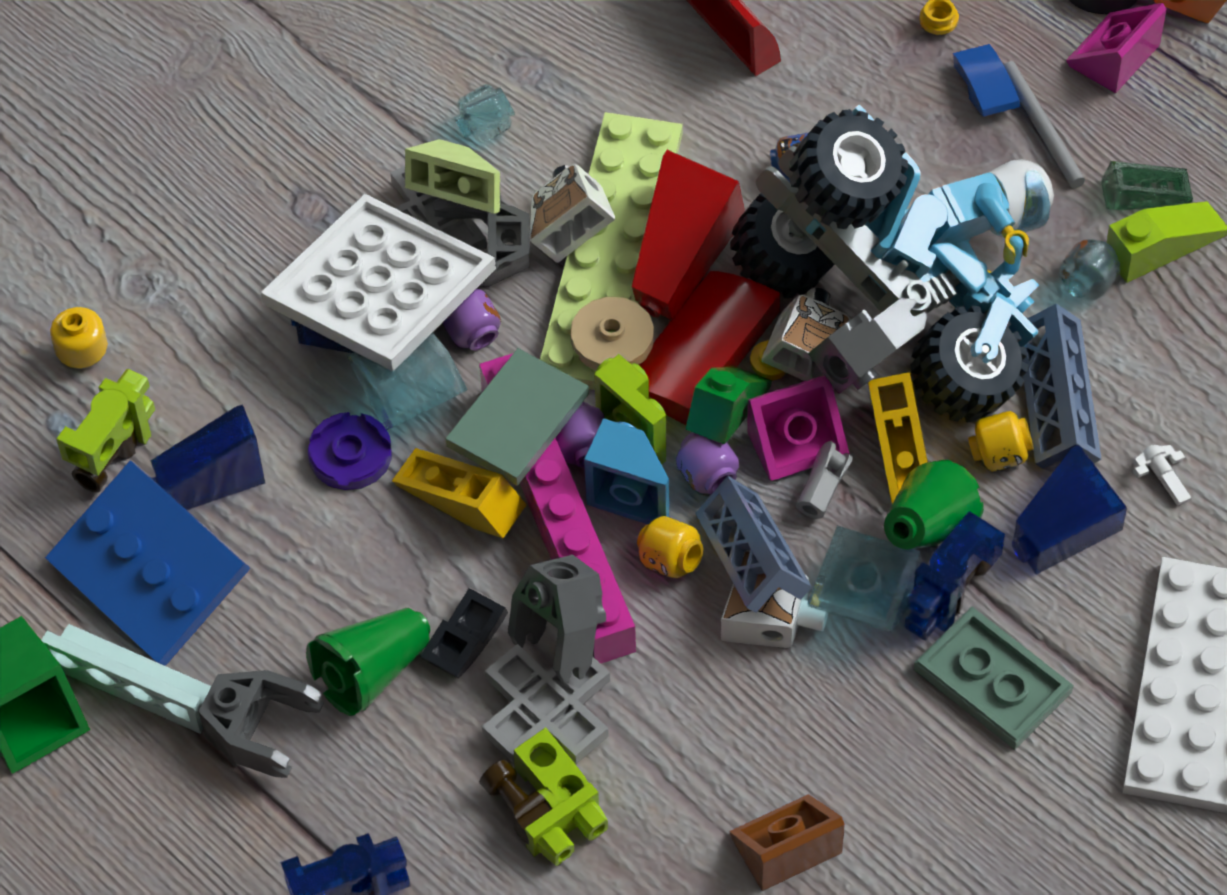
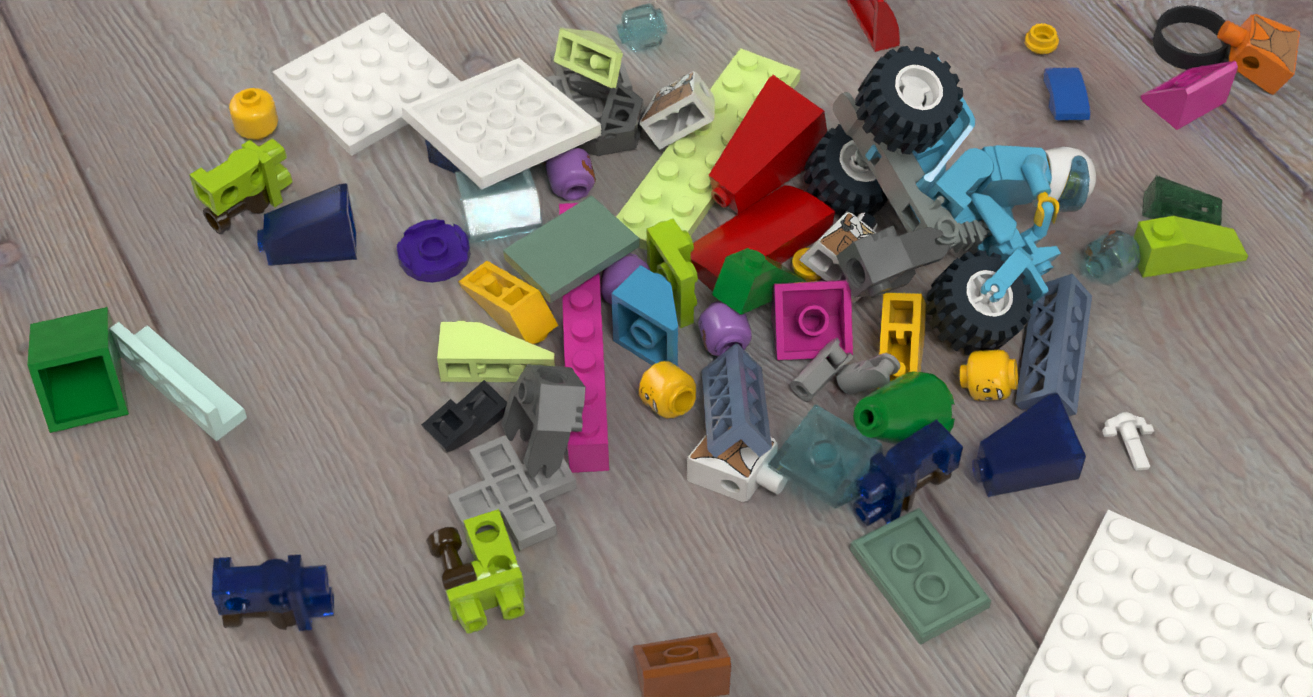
camera: 15 degrees right, 5 degrees down
(147, 563) = (228, 294): blue plate -> none
(188, 262) = (362, 81): none -> white plate
(236, 707) = (267, 420): dark grey piece -> none
(366, 657) = (374, 411): green cone -> none
(460, 558) = (483, 353): none -> yellowish green slope
(595, 344) = (685, 201): tan plate -> none
(876, 474) = (868, 373): none -> light grey bar
(1045, 127) = (1106, 141): light grey bar -> none

